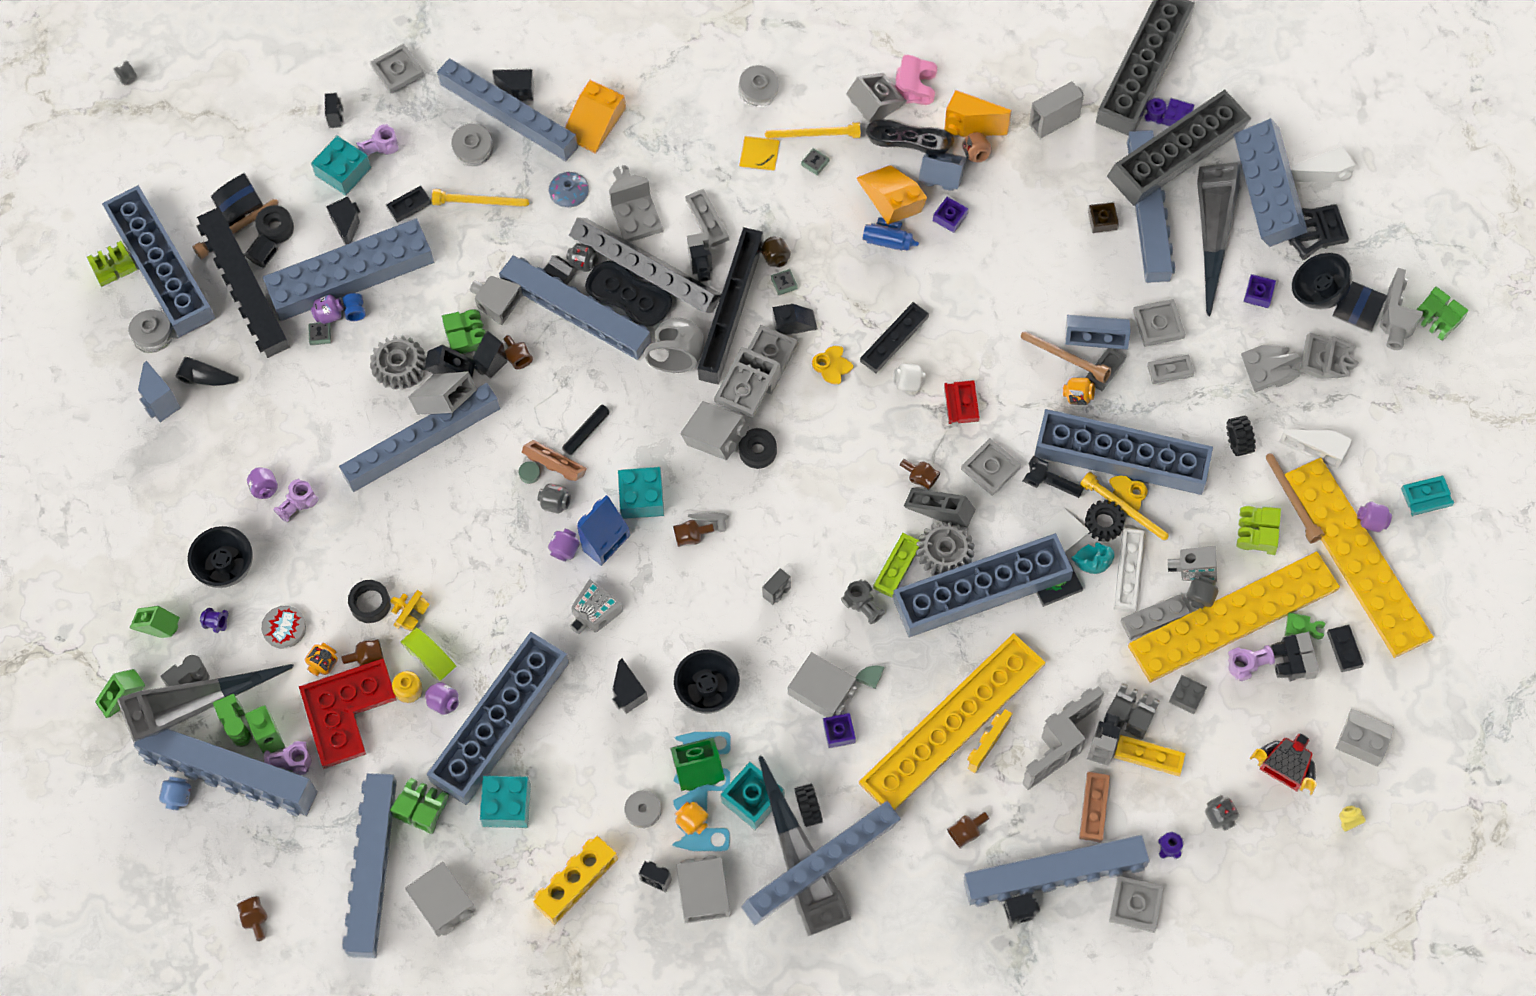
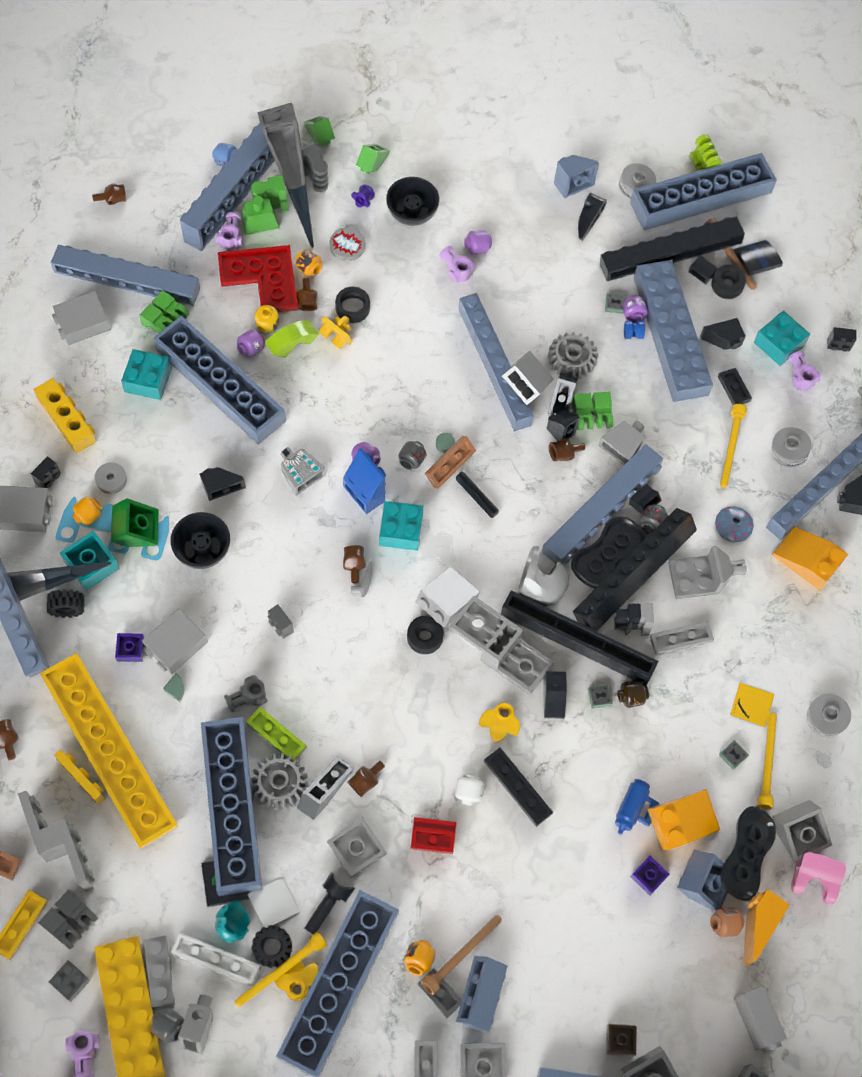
camera: 95 degrees right, 0 degrees up
(1105, 740) = (45, 885): hips -> none

